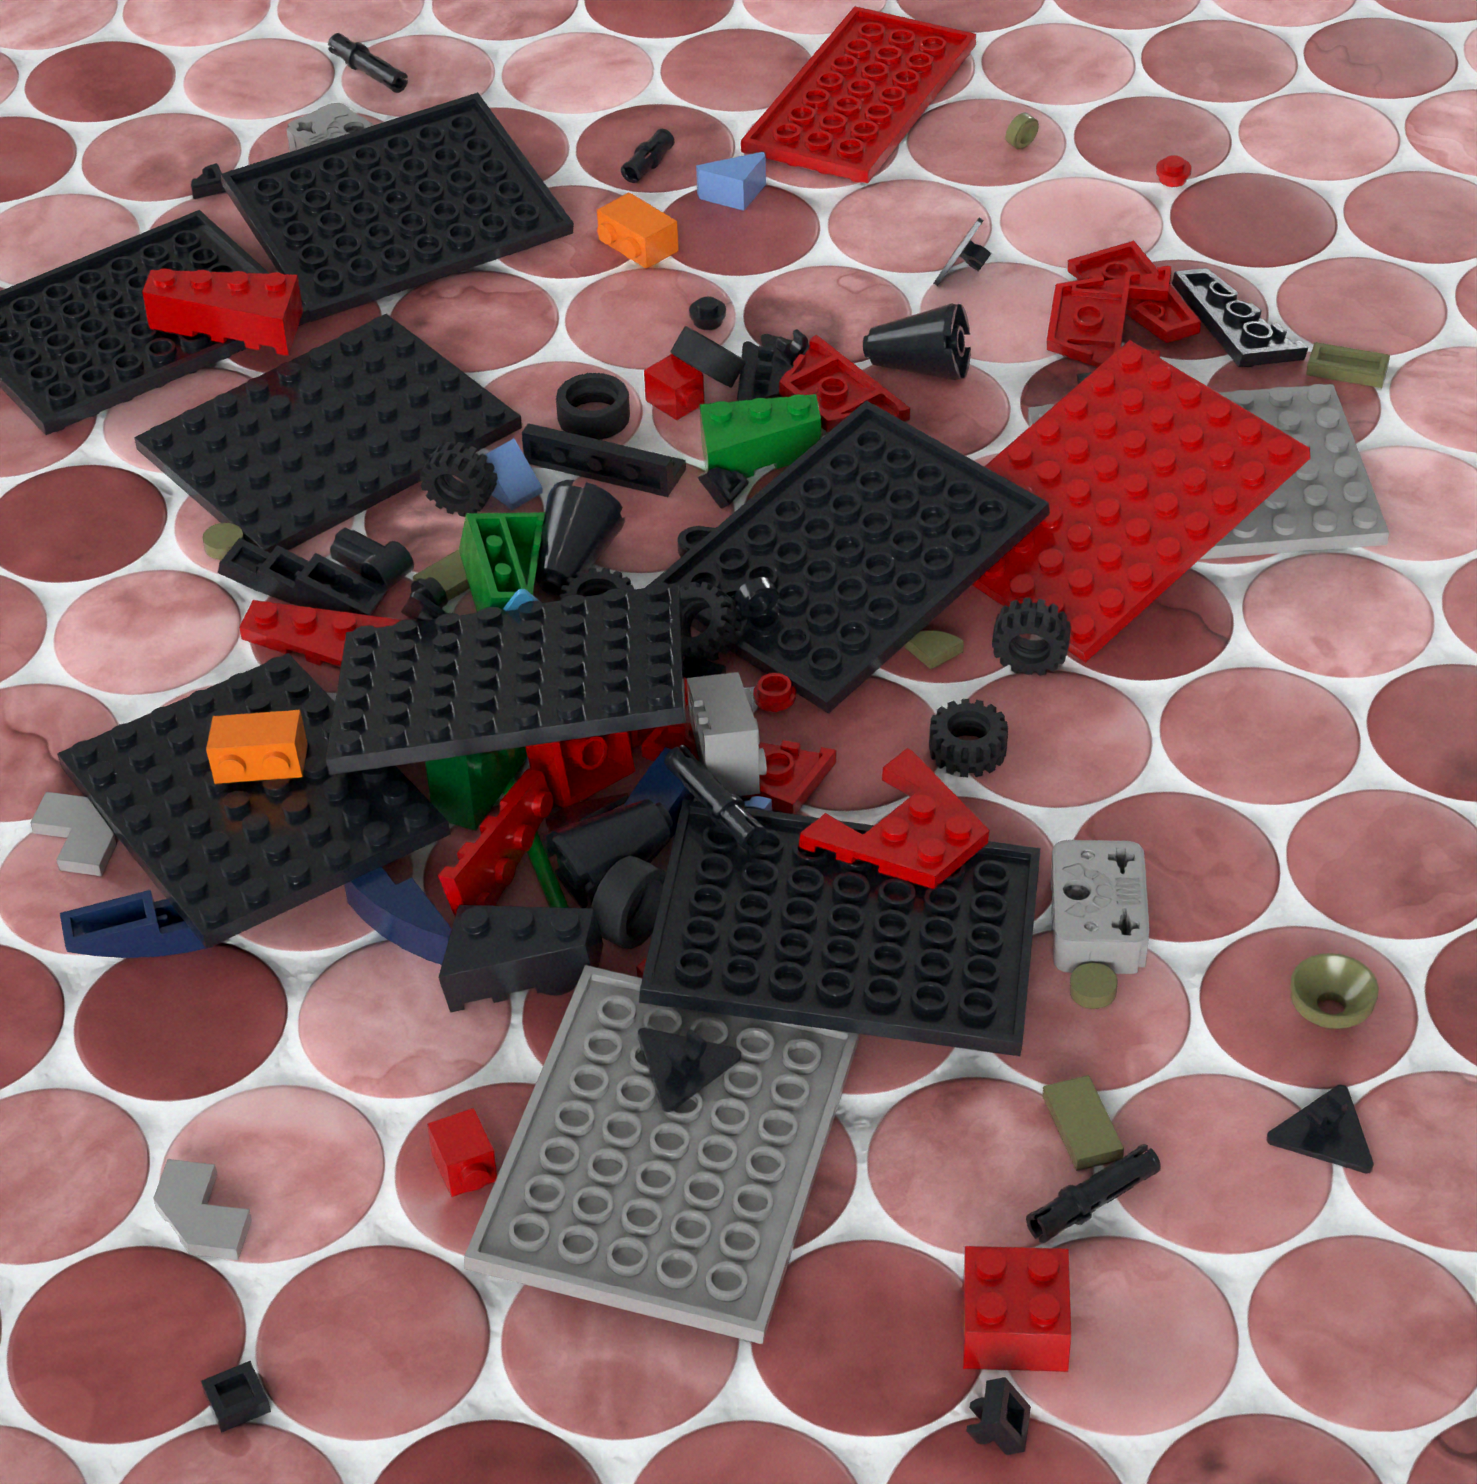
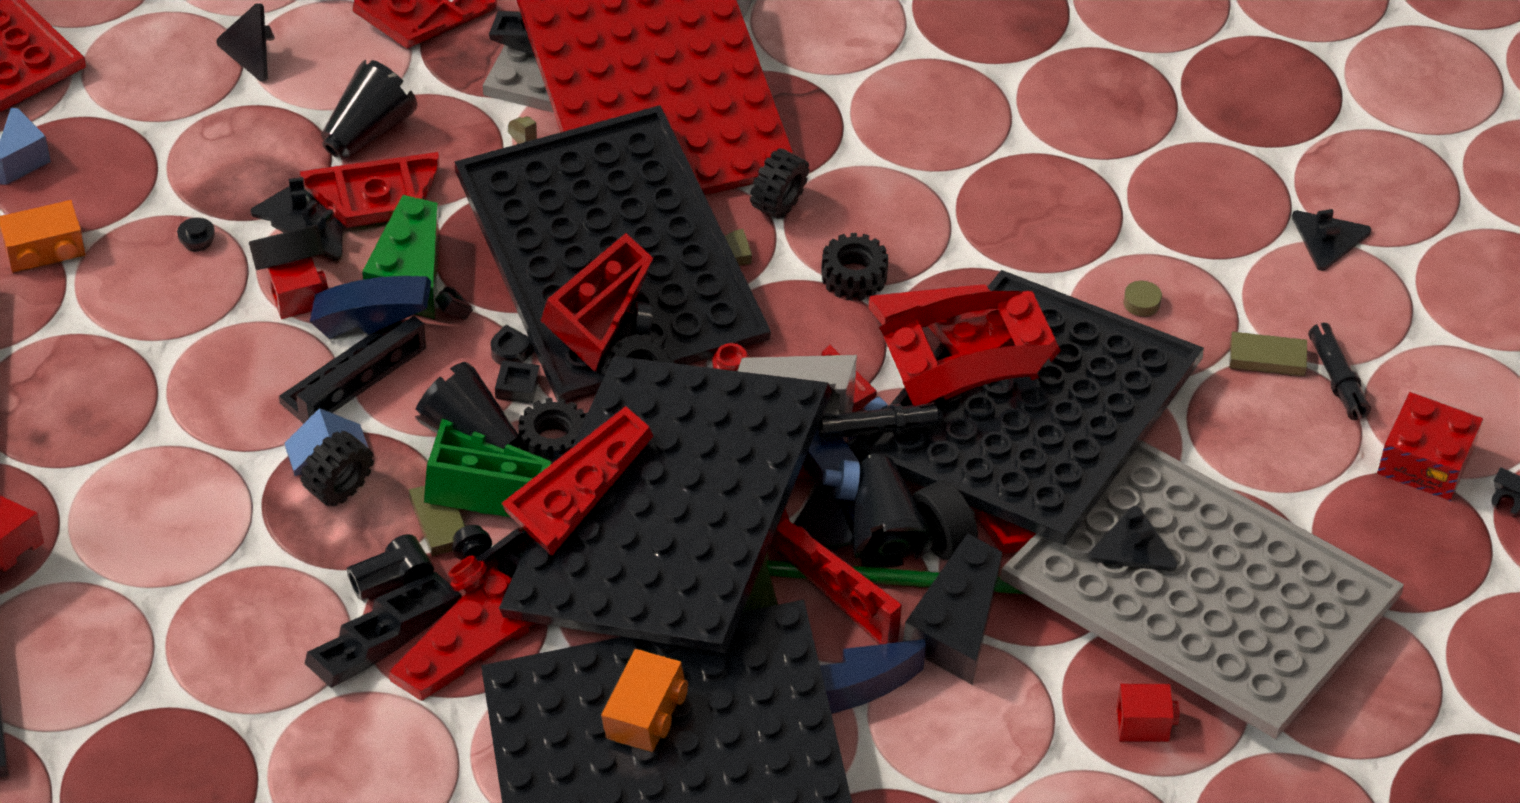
camera: 70 degrees left, 5 degrees up
(220, 538) = (279, 674): olive tile -> none
(325, 434) = (170, 556): black plate -> none
(382, 603) = (467, 574): none -> red plate
(486, 603) = (573, 484): none -> red wing
(593, 388) = (272, 331): black tyre -> none
(621, 793) = (845, 479): none -> medium blue tile
(653, 560) = (517, 381): none -> black tile
(670, 426) = (369, 304): none -> dark blue slope
(744, 545) = (597, 299): none -> red wedge
(805, 825) = (928, 380): none -> red wedge
(984, 449) = (522, 129): none -> olive tile
(1099, 905) = (1076, 259): light grey axle -> none
(1336, 979) = (1222, 167): olive piece -> none

